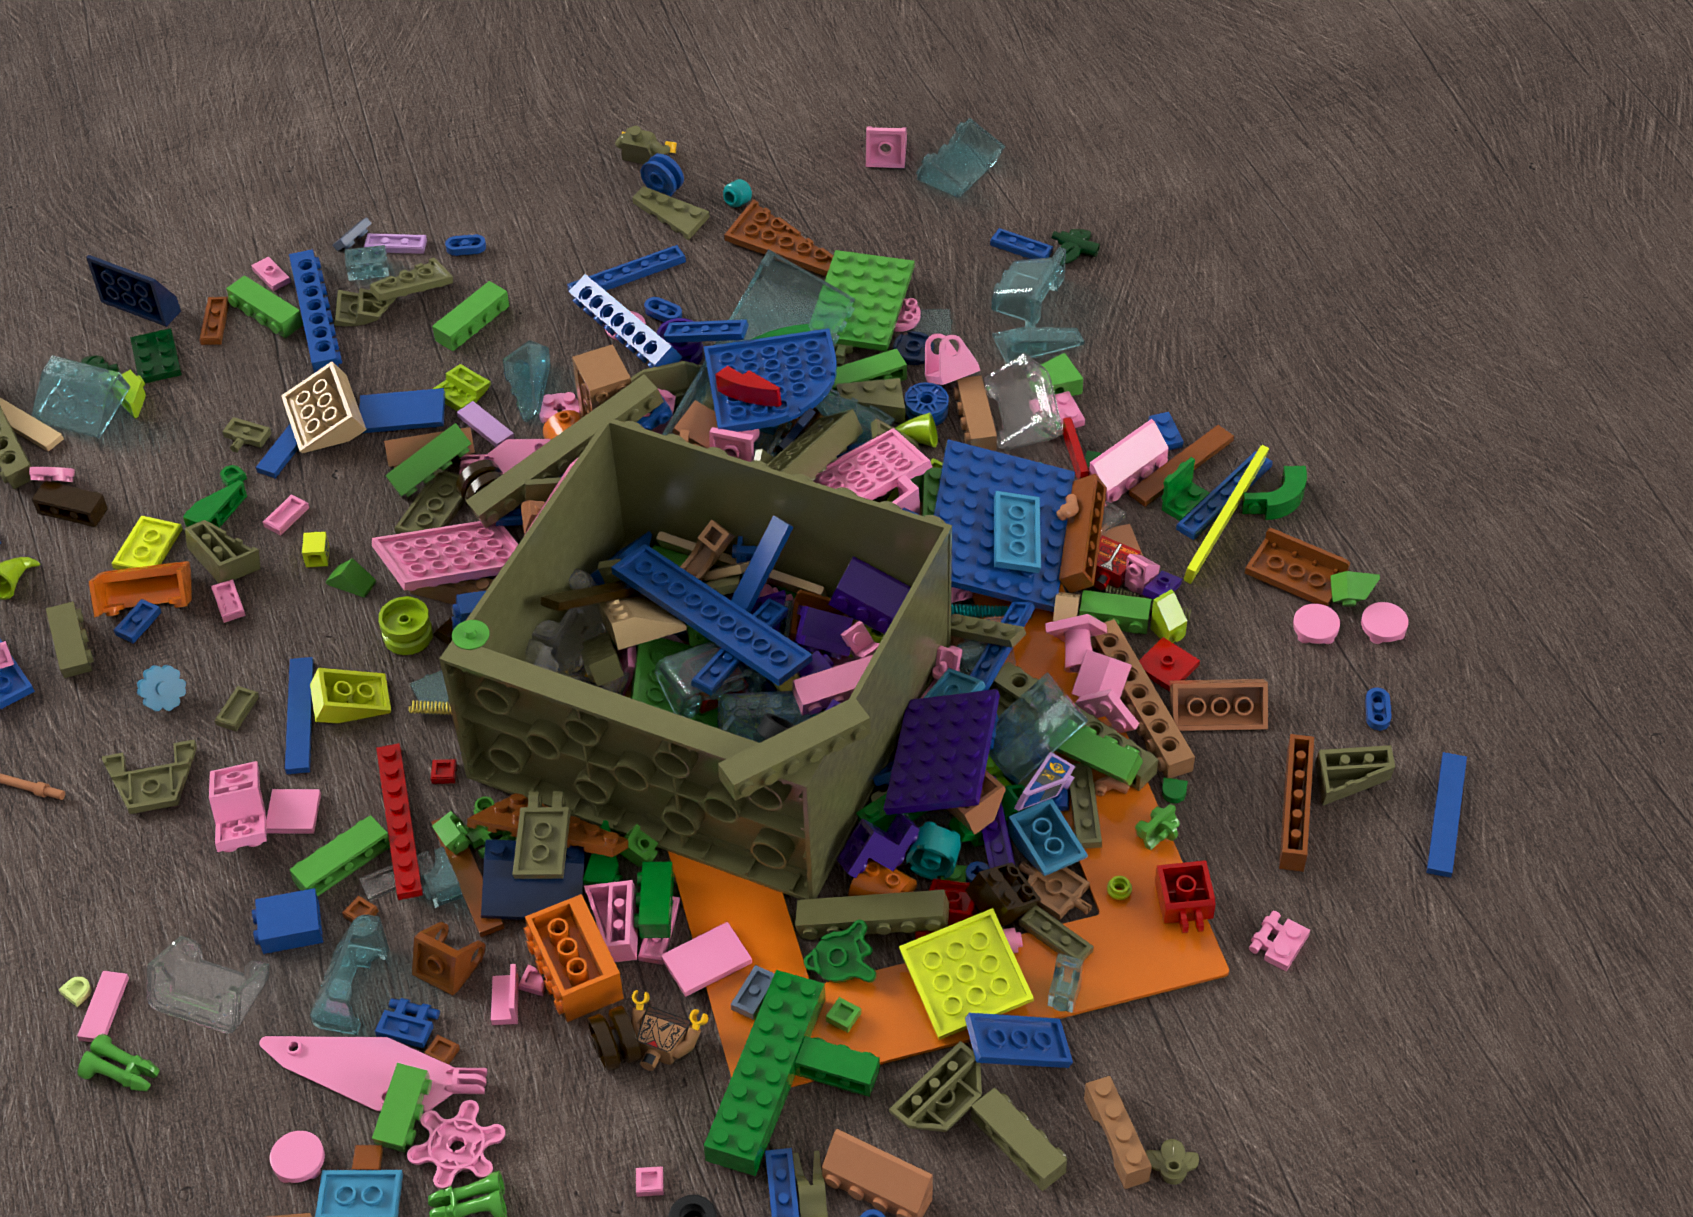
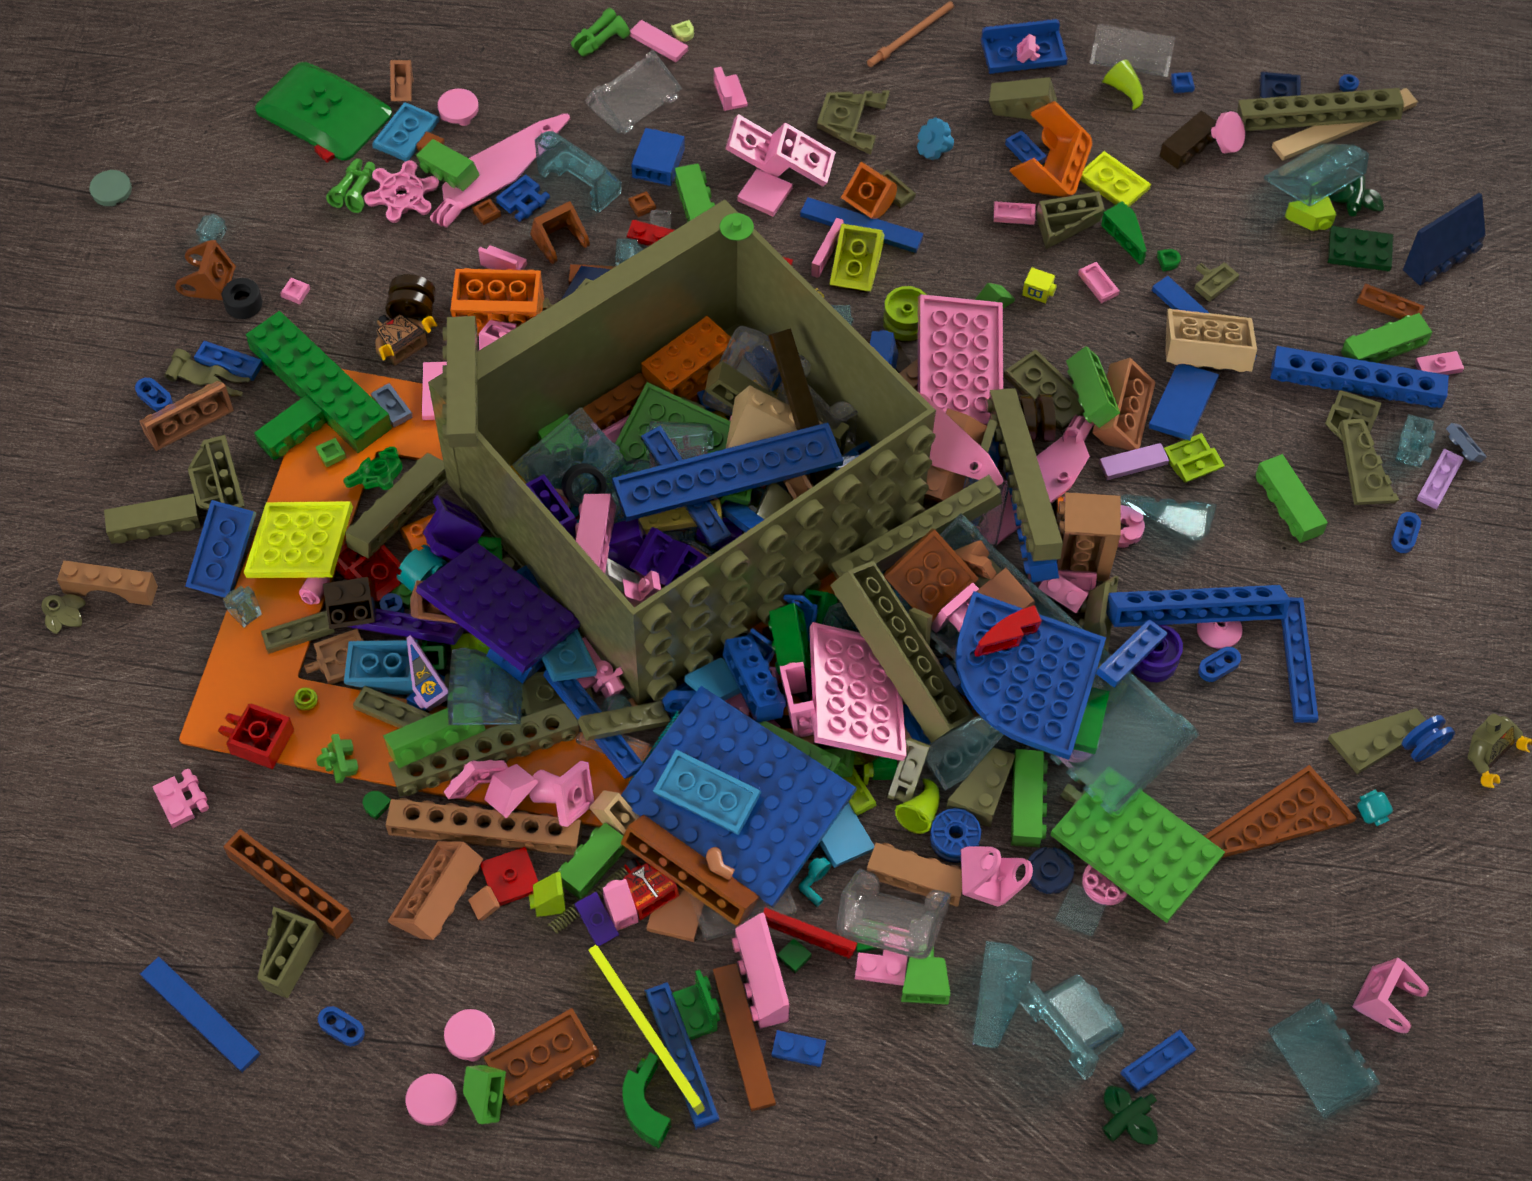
camera: 115 degrees right, 10 degrees up
(156, 905) = (729, 90): none -> bright pink panel
(259, 713) = (870, 191): none -> orange brick
(348, 724) = (826, 249): none -> bright pink tile
(1204, 666) = (484, 903): none -> nougat tile

